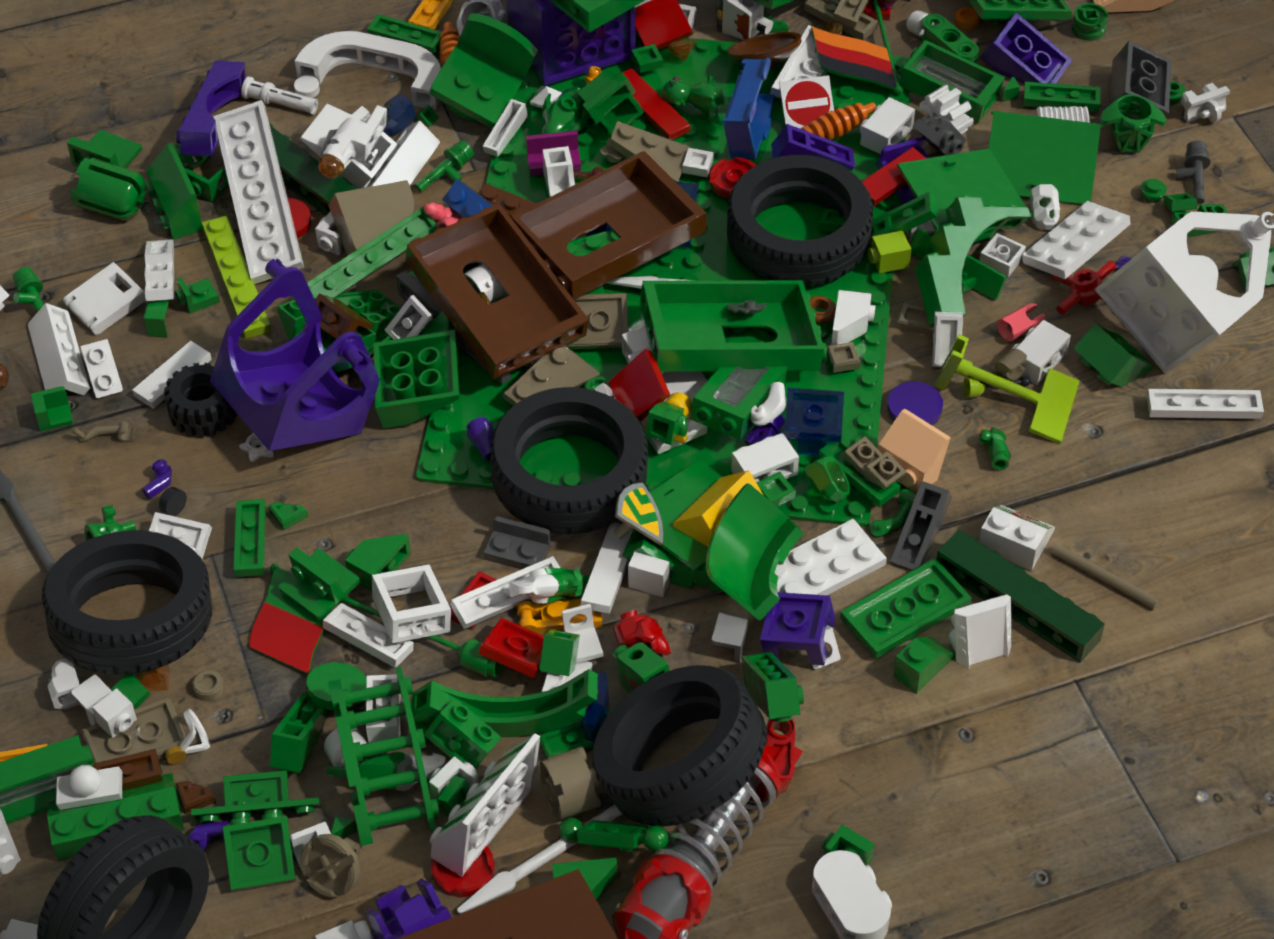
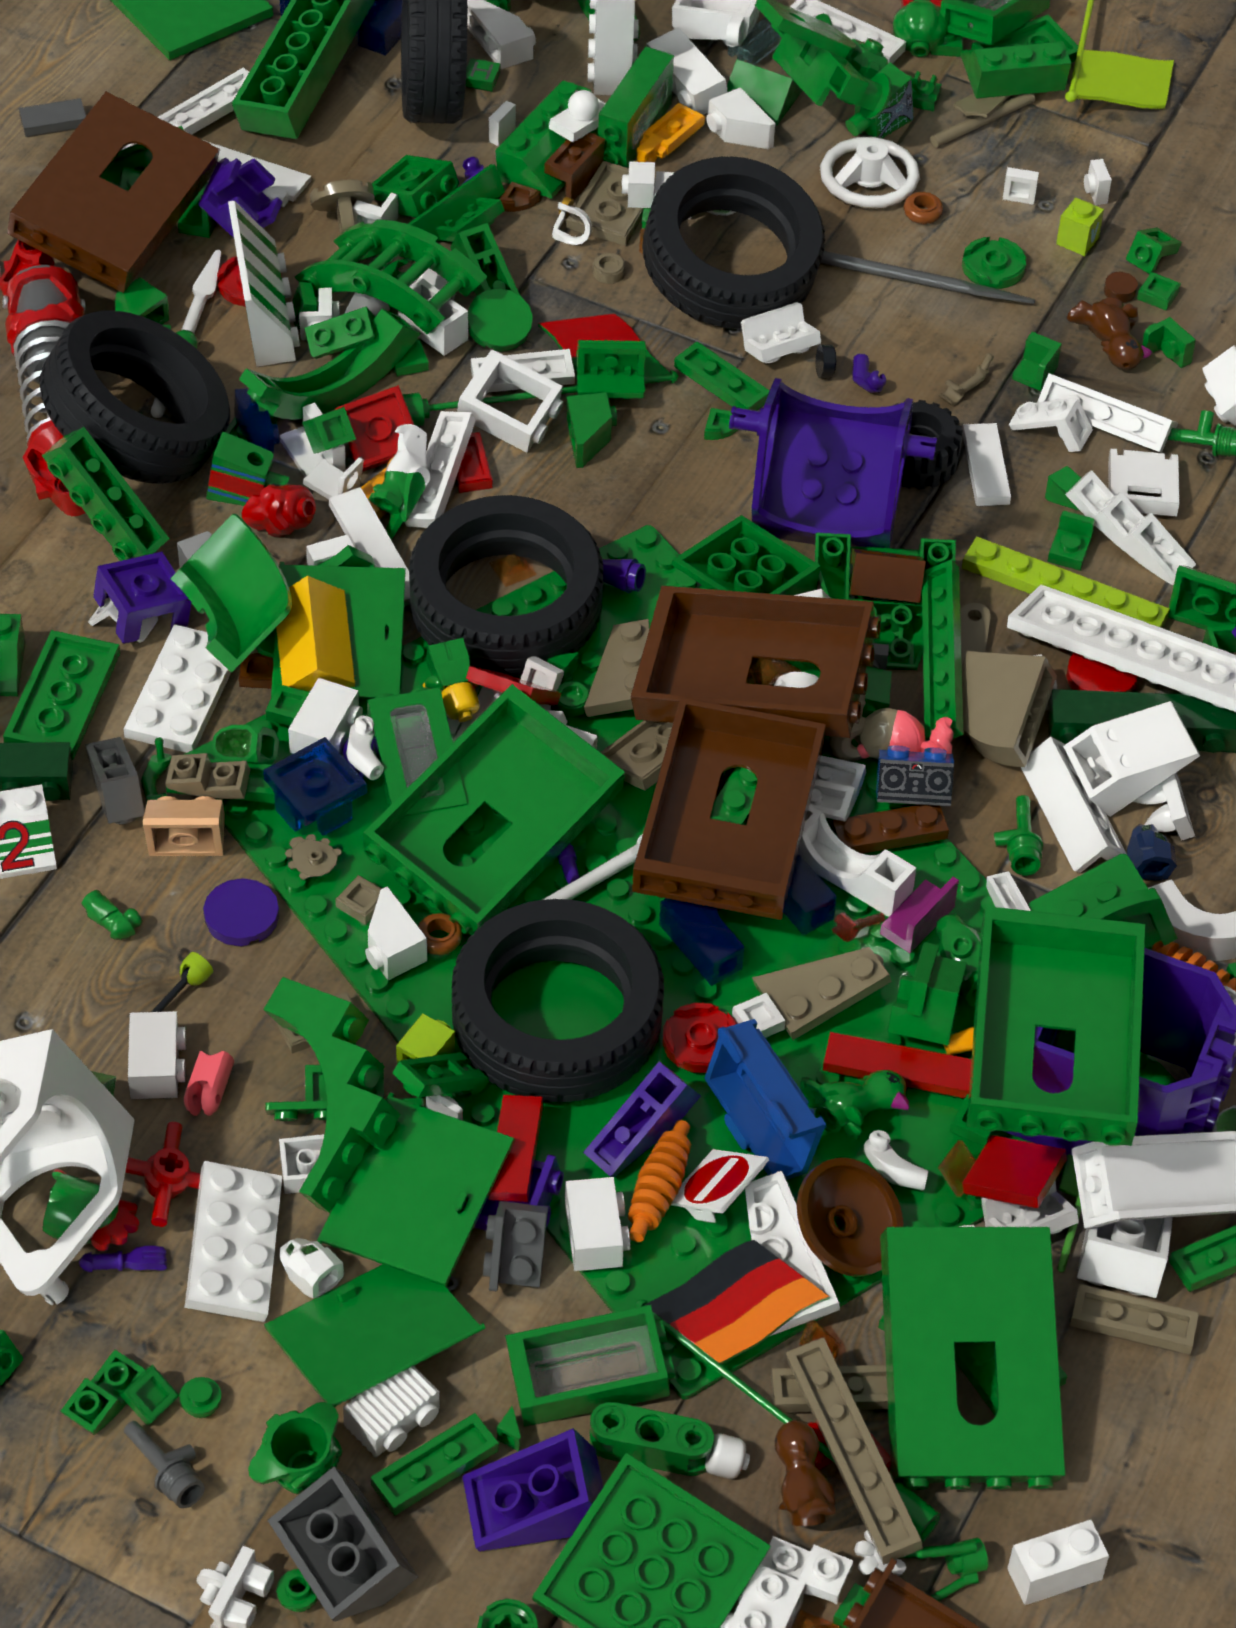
camera: 135 degrees right, 0 degrees up
(108, 525) = (842, 306): green piece -> none
(351, 141) = (1108, 722): white plate -> none
(569, 783) = (223, 347): dark tan brick -> none
(638, 512) = (376, 559): shield -> none
(710, 66) = (892, 1166): none -> white arm
(747, 307) = (504, 852): dark grey piece -> none
(852, 397) = (312, 856): none -> dark tan piece
(945, 106) = (540, 1291): white gear -> none
(946, 330) = (262, 983): white tile -> none
(1010, 365) = (169, 996): dark tan piece -> none
(1052, 404) = (92, 1009): lime piece -> none

